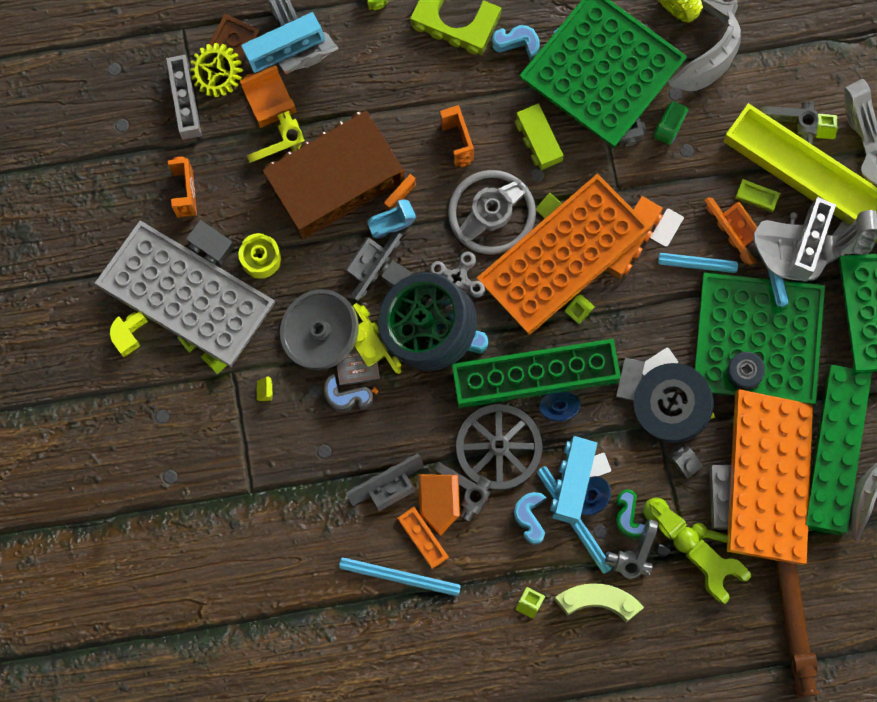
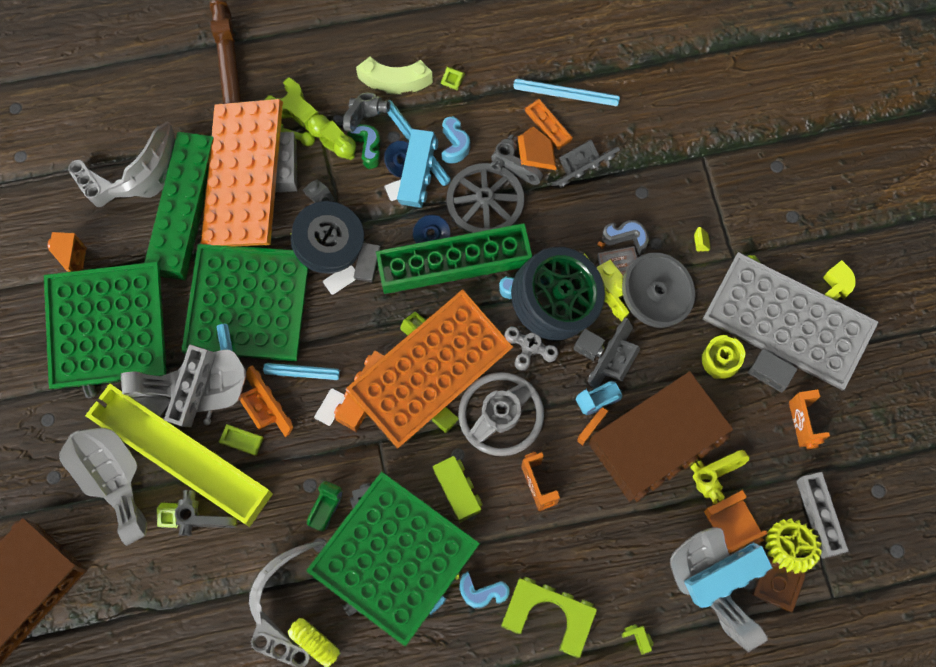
camera: 175 degrees right, 5 degrees down
(739, 374) = (265, 269): black wheel -> none

